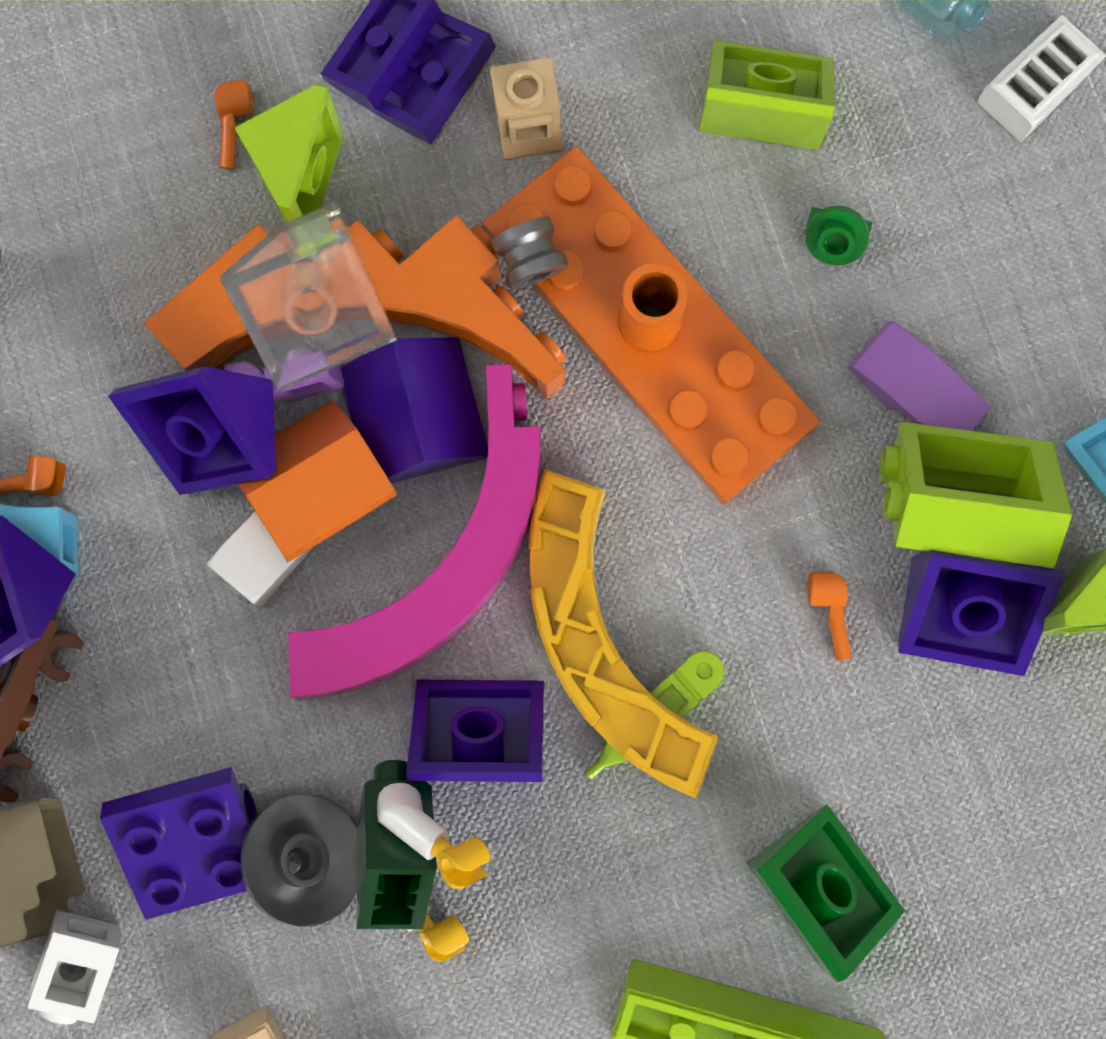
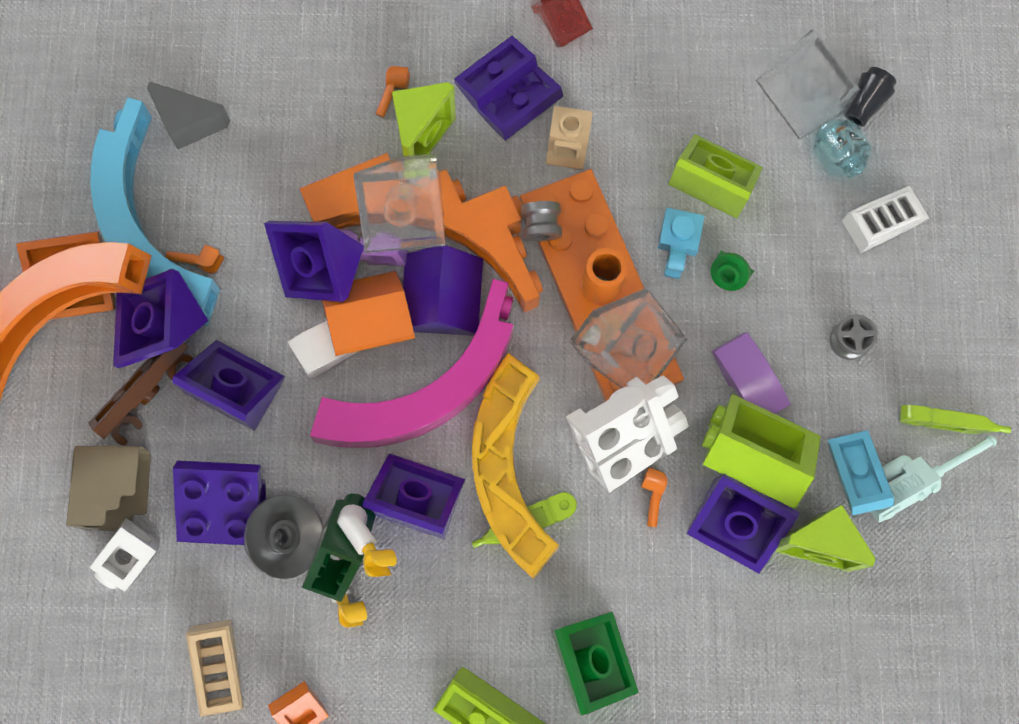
camera: 10 degrees right, 5 degrees down
(142, 654) = (230, 383): none -> dark purple slope
(724, 395) = (629, 339): none -> clear slope
(744, 205) = (680, 237): none -> medium azure plate
(766, 529) = (628, 430): none -> white hips
(1062, 264) = (858, 330): none -> flat silver wheel

